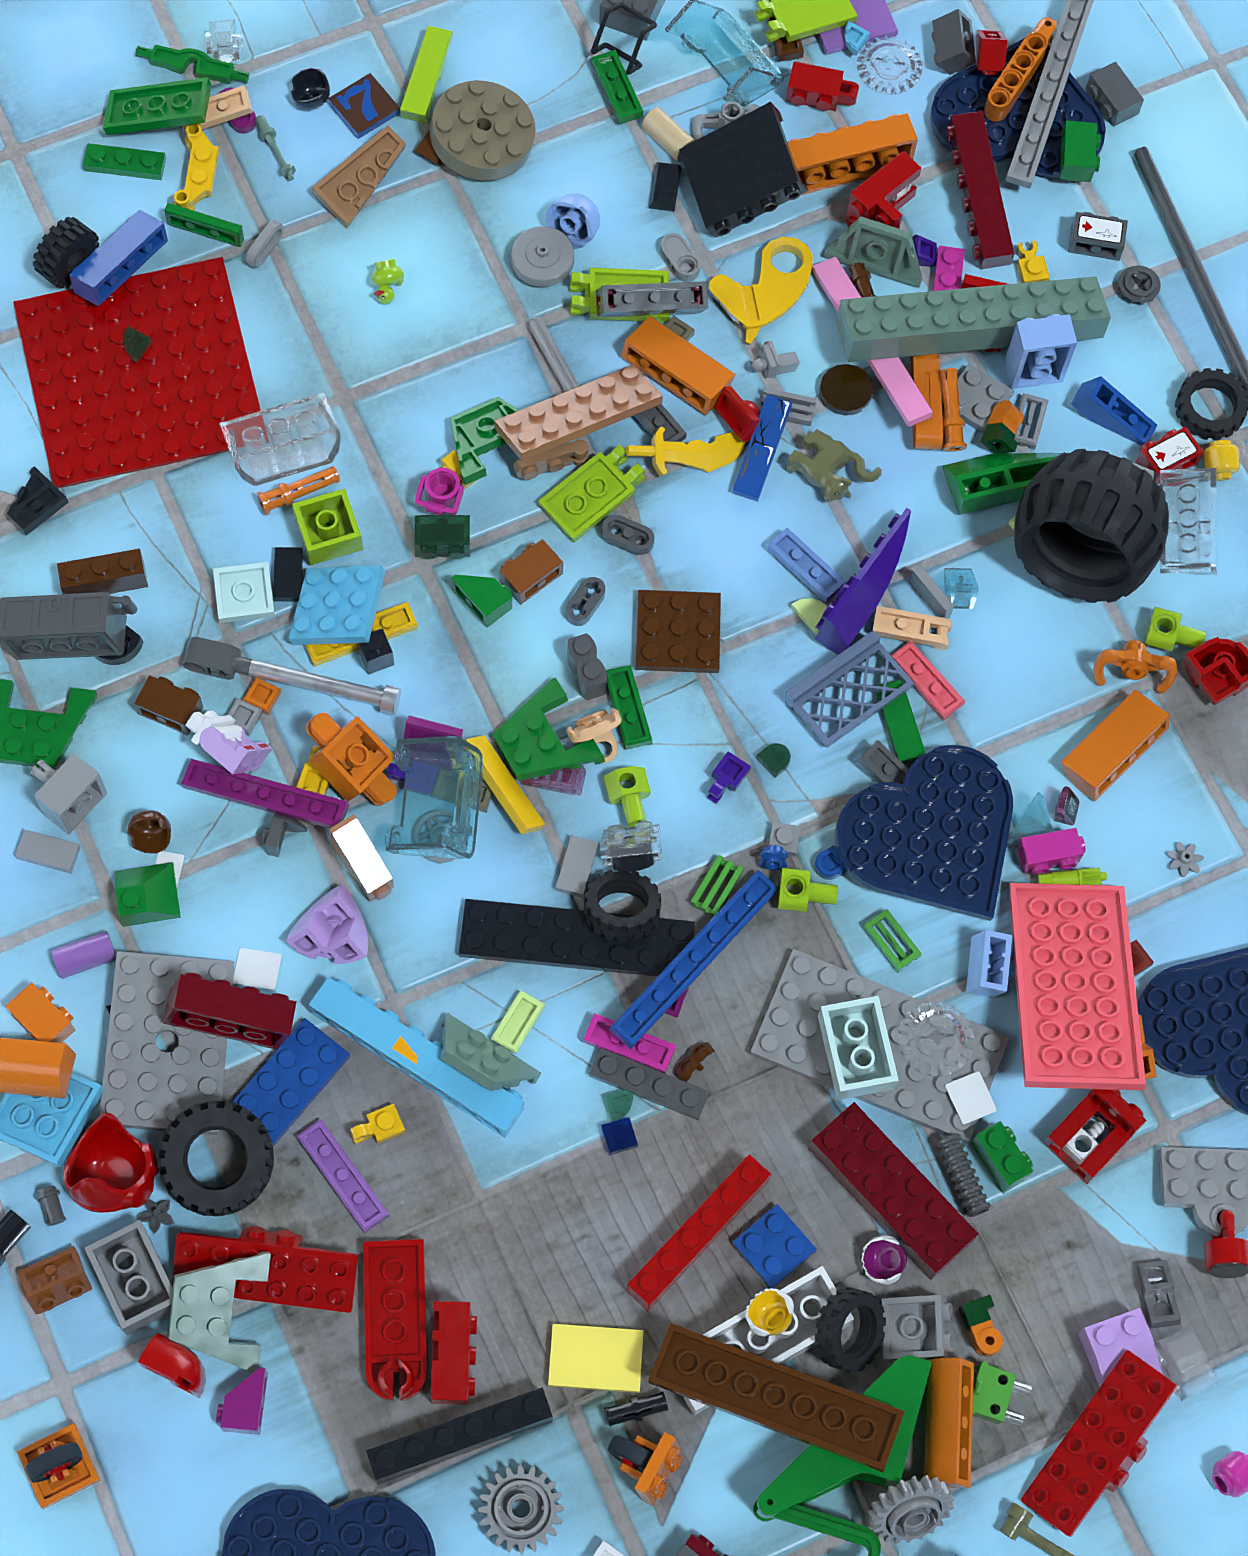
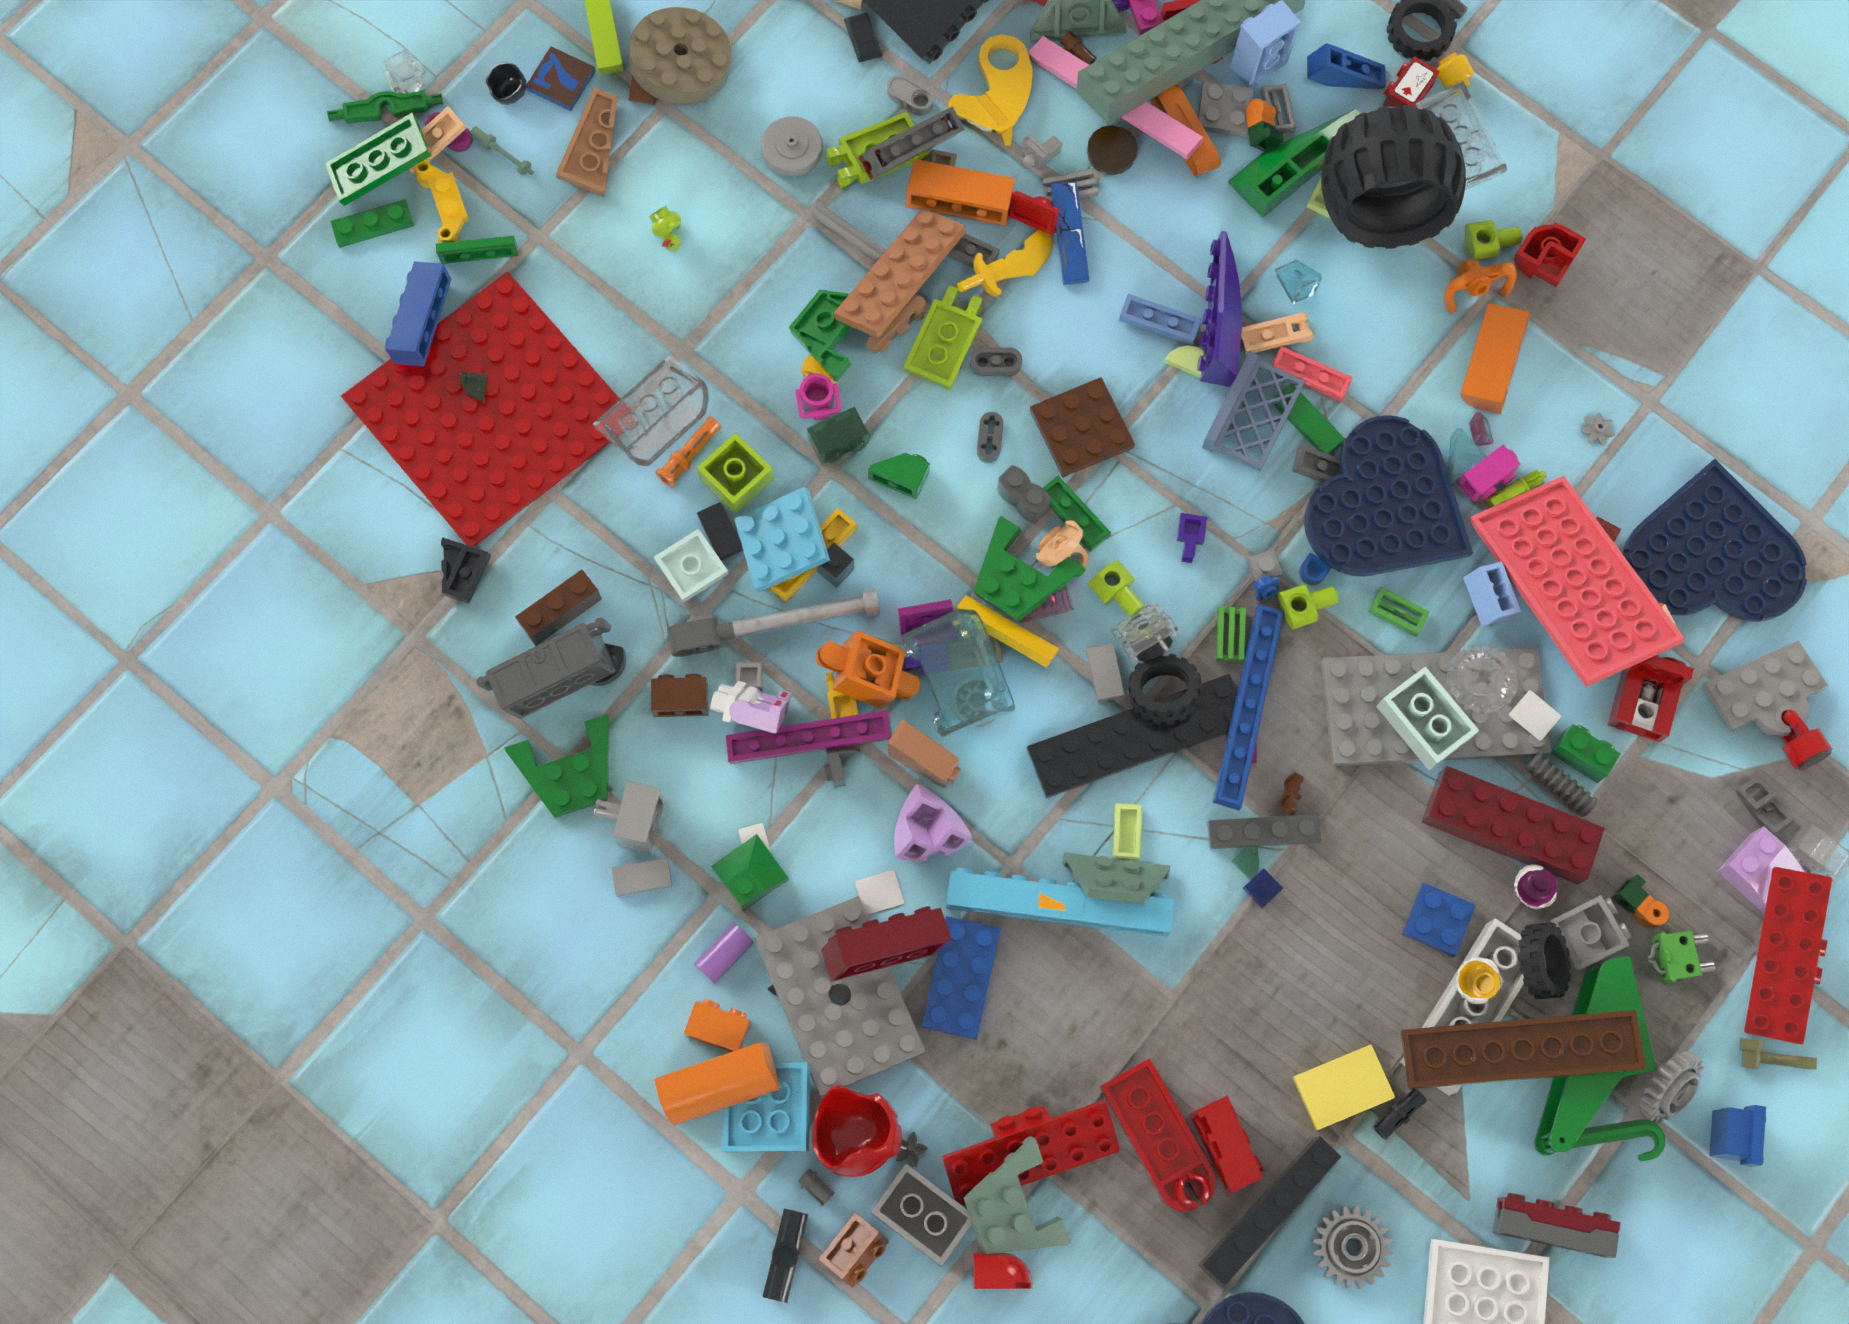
camera: 25 degrees left, 5 degrees up
(64, 250) = (368, 329): black tyre -> none
(149, 831) = (725, 817): reddish brown hair -> none
(174, 1158) = (978, 1085): black tyre -> none
(244, 1405) = (1075, 1276): magenta slope -> none
(262, 695) = (755, 649): orange tile -> none
(264, 243) = (540, 243): light grey tile -> none
(342, 1176) = (1050, 1036): medium lavender tile -> none
(381, 1124) = (1059, 976): yellow plate -> none
(531, 571) = (931, 431): dark orange brick -> none
(575, 217) = (804, 98): light blue cylinder -> none
(647, 1051) = (1255, 804): dark pink plate -> none
(647, 1463) = (1425, 1155): orange plate -> none
(698, 1232) = (1374, 939): red brick -> none
(774, 758) = (1221, 500): clear green tile -> none
(829, 459) = (1130, 230): olive animal -> none
(931, 592) = (1277, 296): light grey tile -> none
(949, 1422) = (1662, 1002): orange brick -> none
(952, 421) = (1210, 123): orange pin -> none

